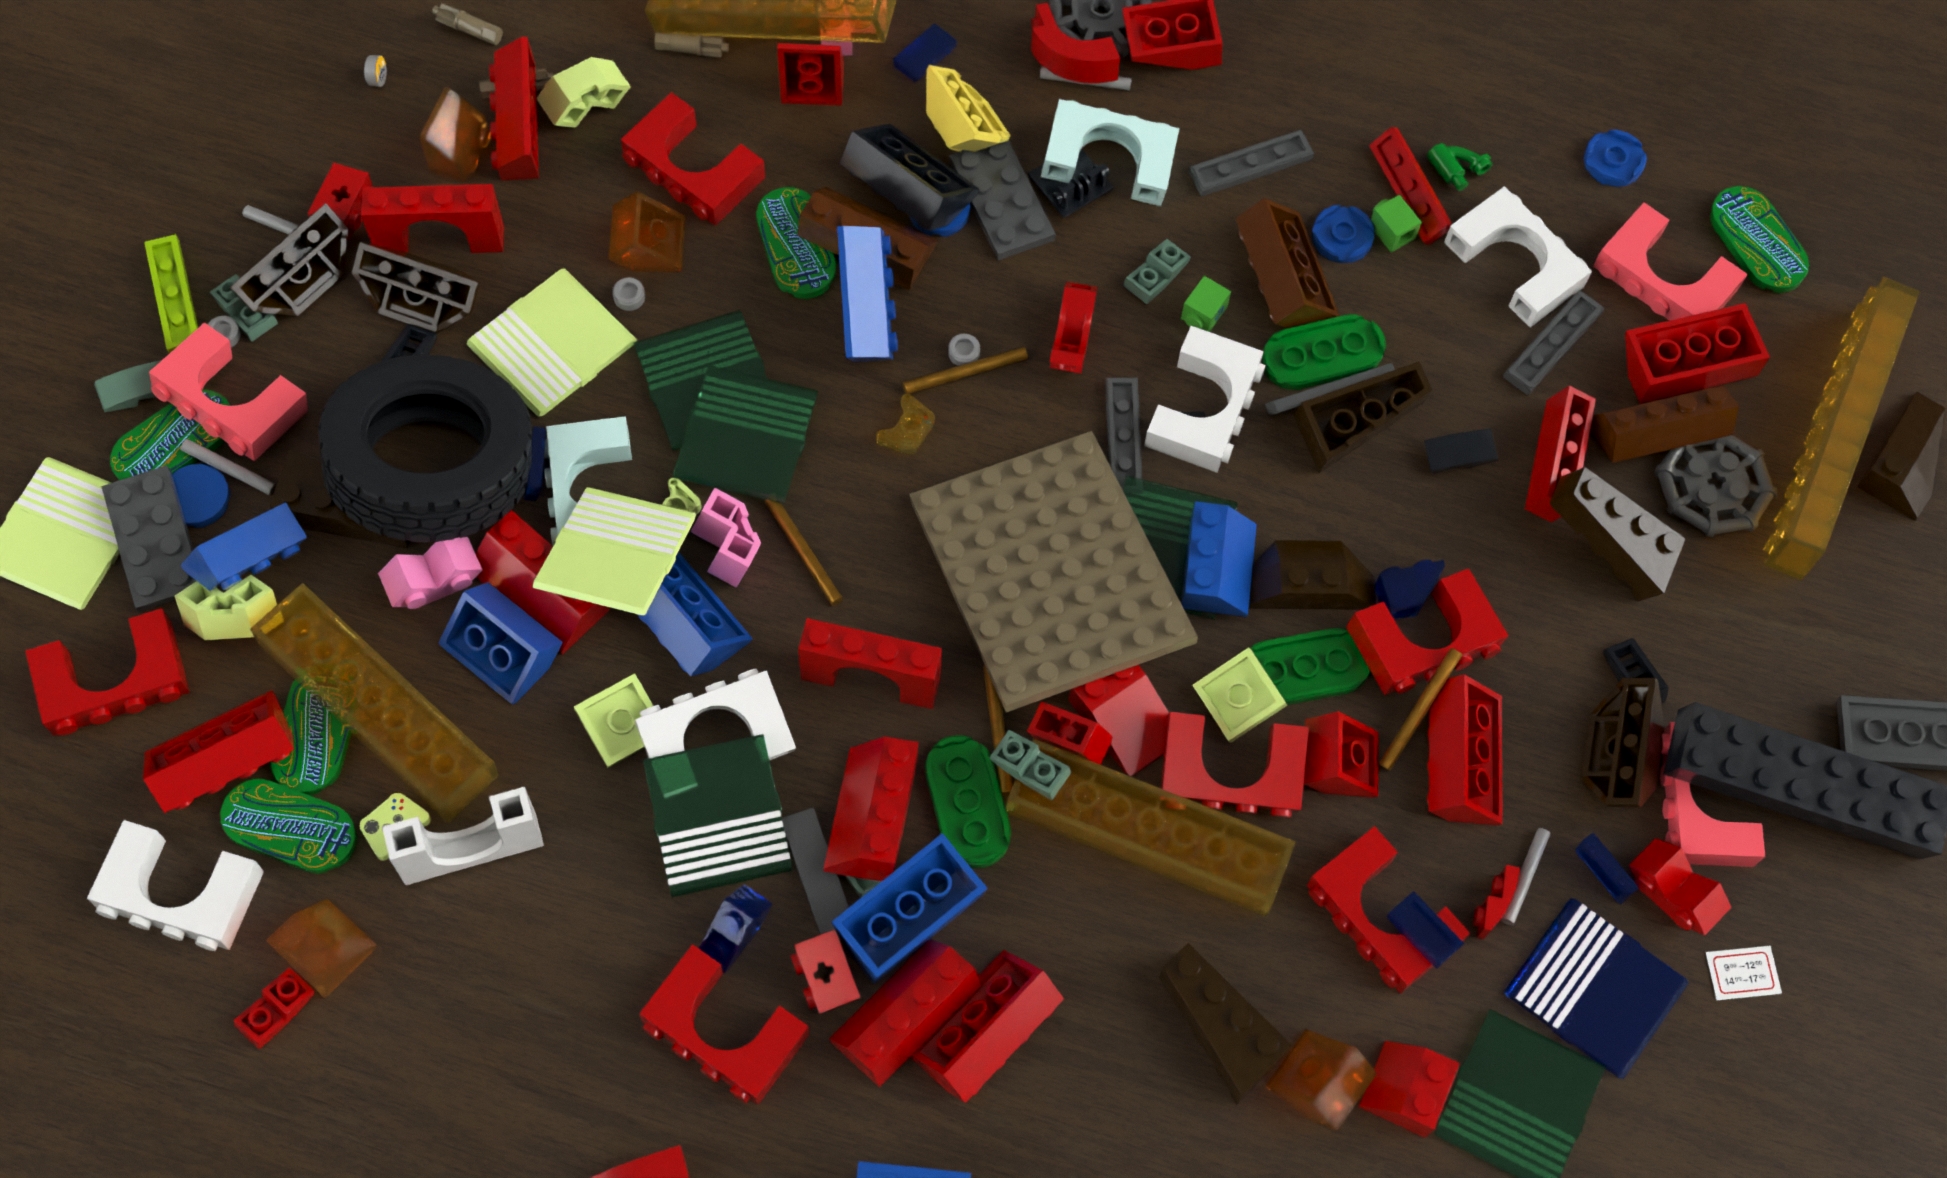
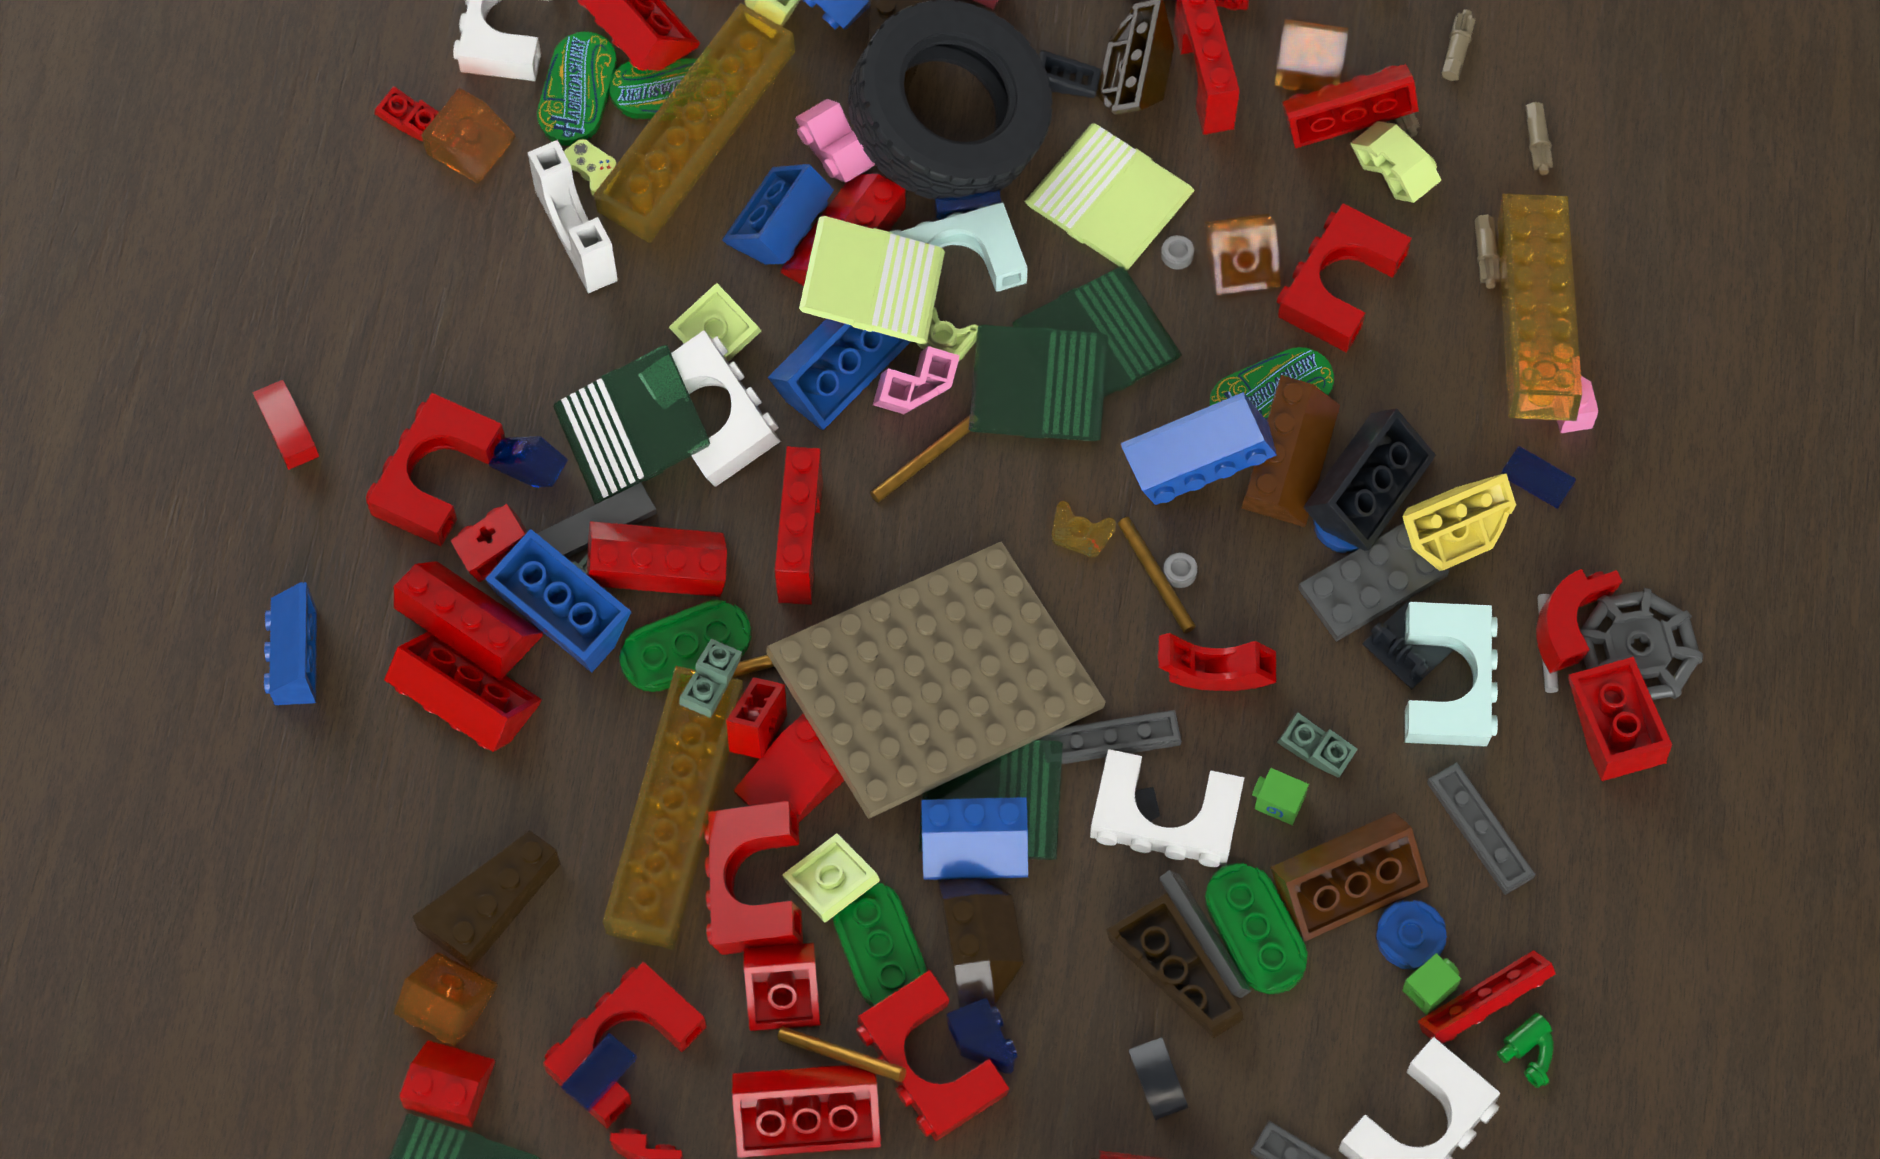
camera: 85 degrees right, 0 degrees up
(811, 74) = (1469, 363): red slope -> none

